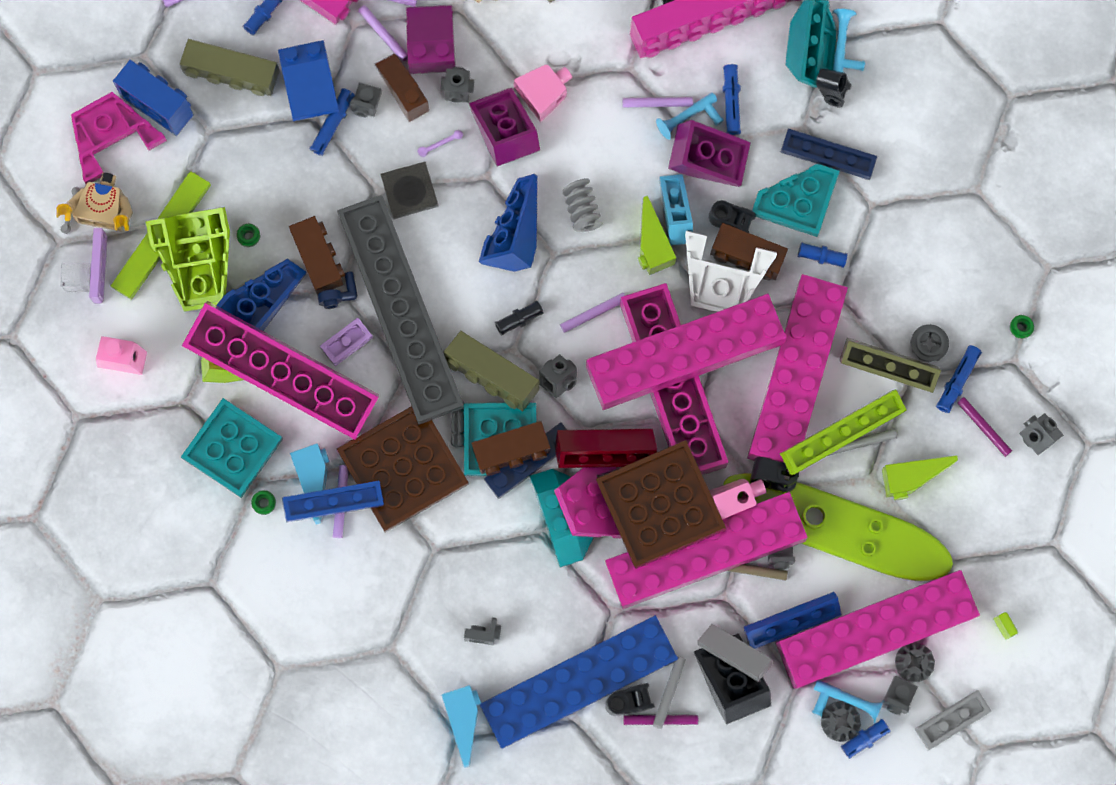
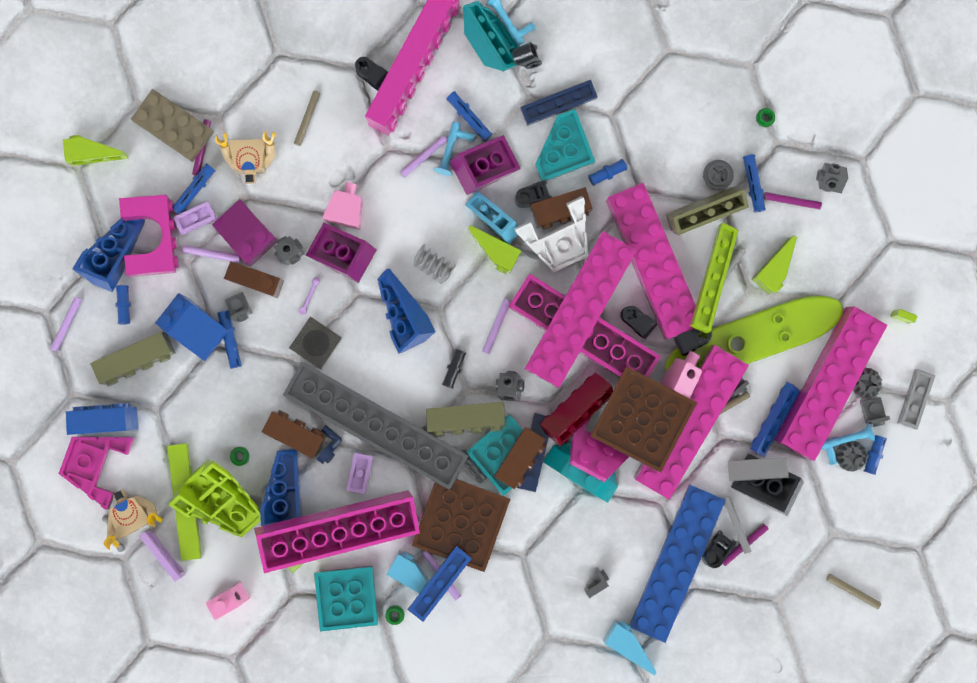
camera: 40 degrees left, 10 degrees up
(735, 420) = (640, 324): none -> black piece

